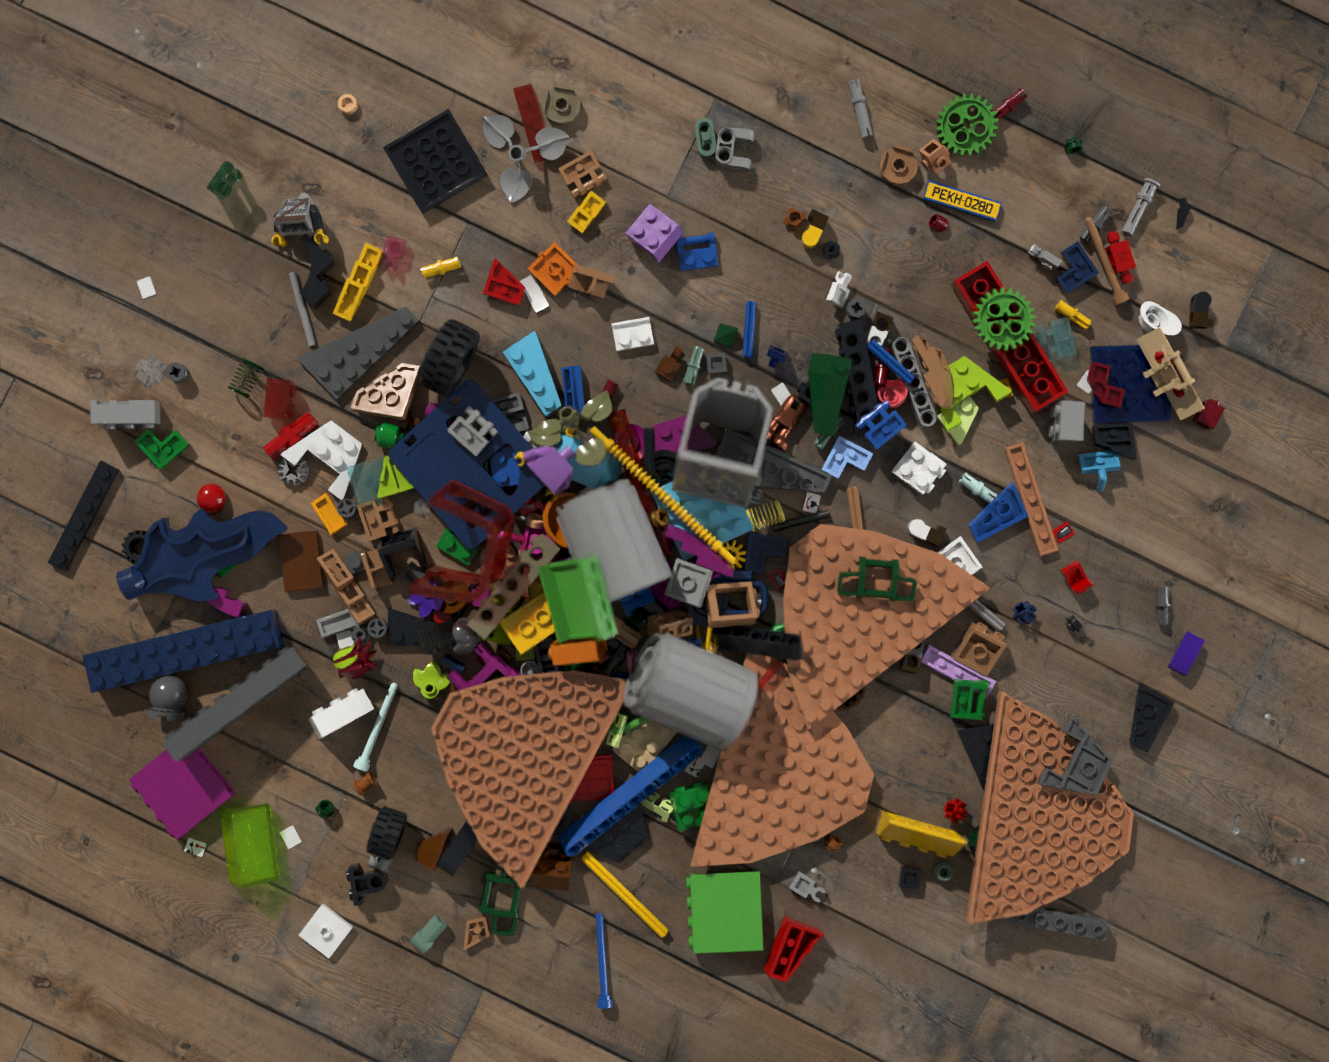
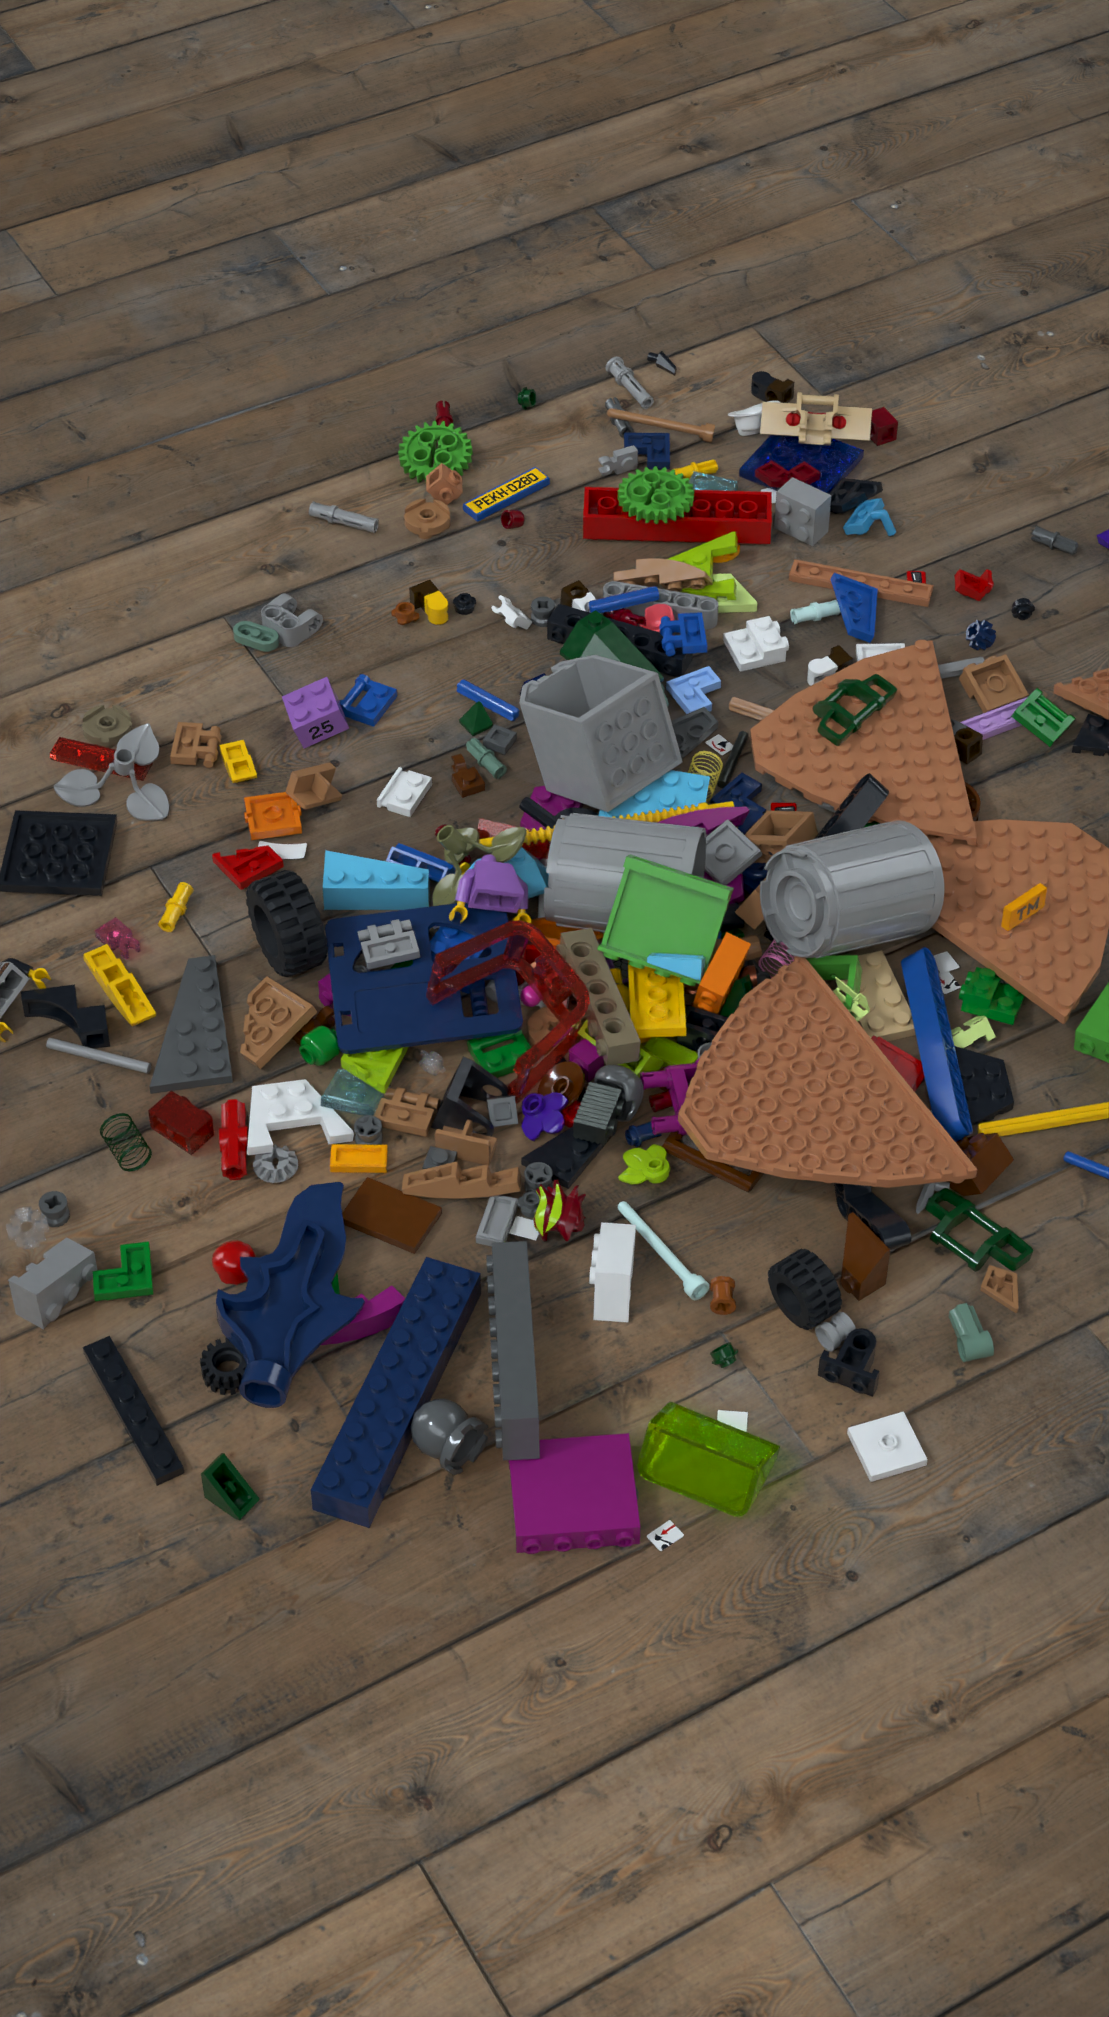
camera: 55 degrees left, 40 degrees down
(65, 607) = (227, 1488): none -> dark green slope
(556, 630) = (687, 965): none -> medium azure slope
(760, 794) = (1024, 906): none -> light orange tile
(1120, 257) = (670, 410): red piece -> none

